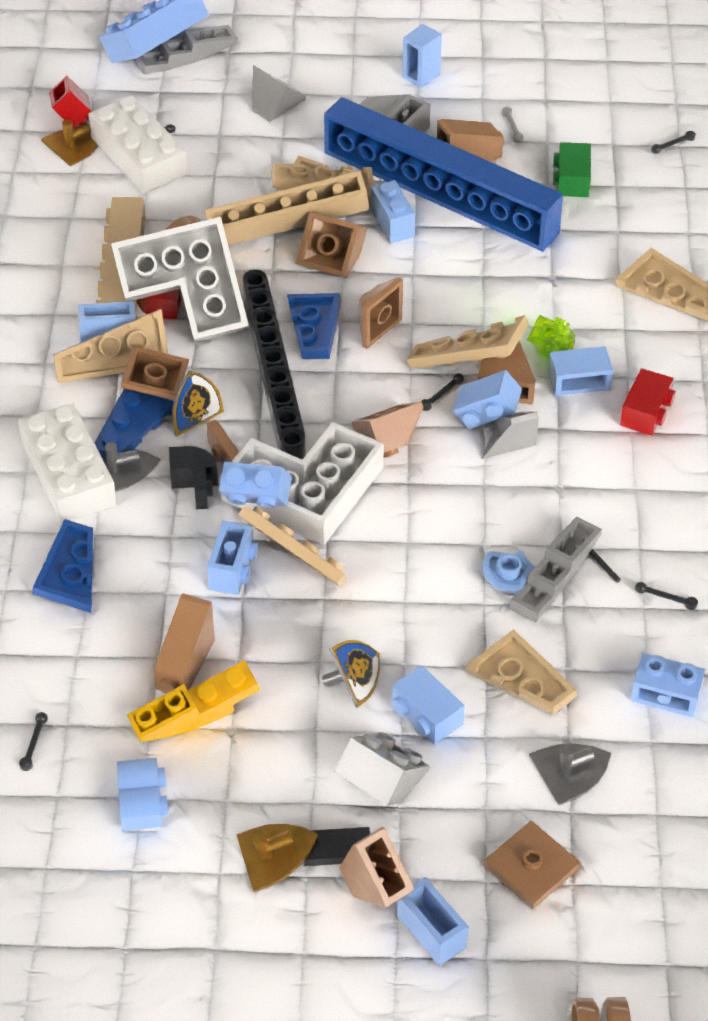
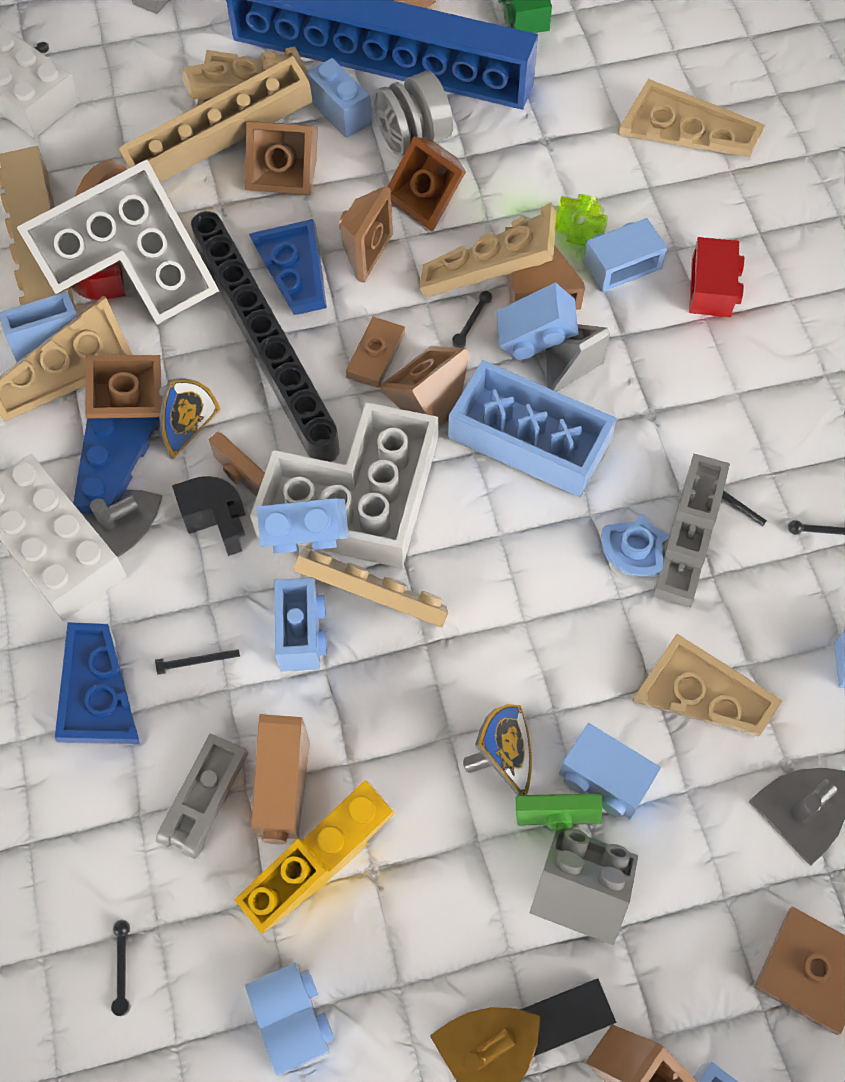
camera: 15 degrees left, 15 degrees up
(123, 566) = (162, 666): none -> black piece
(125, 650) = (202, 795): none -> light grey plate
(356, 397) = (375, 352): none -> medium nougat plate
(380, 717) = (559, 810): none -> bright green plate
(438, 284) = (425, 181): none -> dark orange slope
(449, 233) = (413, 110): none -> light grey wheel
(455, 471) = (531, 428): none -> light blue brick

